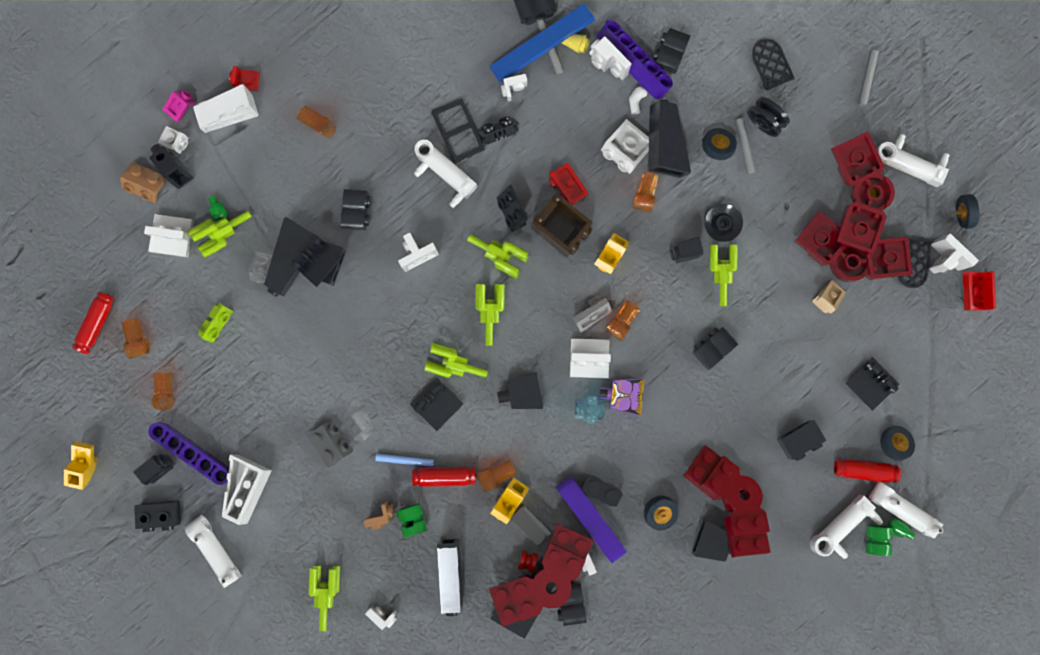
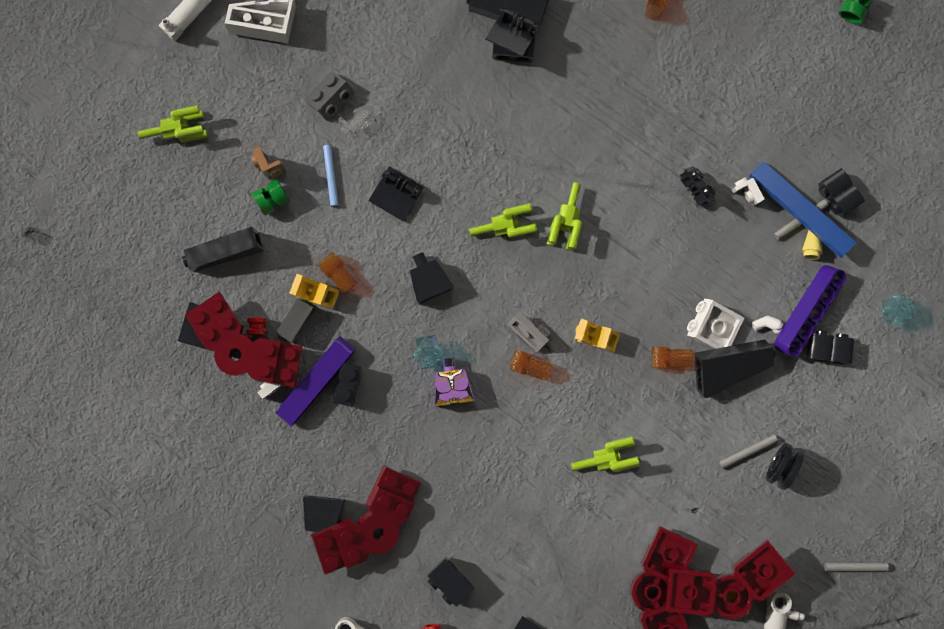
camera: 70 degrees right, 0 degrees up
(354, 209) = (576, 60): black brick -> none
(377, 615) = (165, 187): white bracket -> none
(416, 255) = (545, 133): white bracket -> none
(443, 476) = (323, 219): red axle -> none
(446, 170) = (641, 142): white piece -> none
(451, 363) = (441, 197): lime plant -> none
(457, 131) = (677, 134): black window -> none
(511, 208) = (623, 216): black hinge -> none
(558, 222) = (616, 272): dark brown container -> none
(568, 184) = (658, 273): red bracket -> none
(573, 610) = (219, 384): black brick -> none
(590, 358) = (482, 340): white bracket -> none
(606, 55) = (804, 280): white plate -> none
(661, 513) = (339, 452): black wheel -> none
(686, 250) = (620, 412): black brick -> none
(714, 348) = (525, 468): black brick -> none
(719, 144) = (742, 422): black wheel -> none
(730, 216) = (670, 446): black dish -> none
(786, 65) = (857, 467): black window -> none
(829, 297) = (609, 578): tan slope -> none

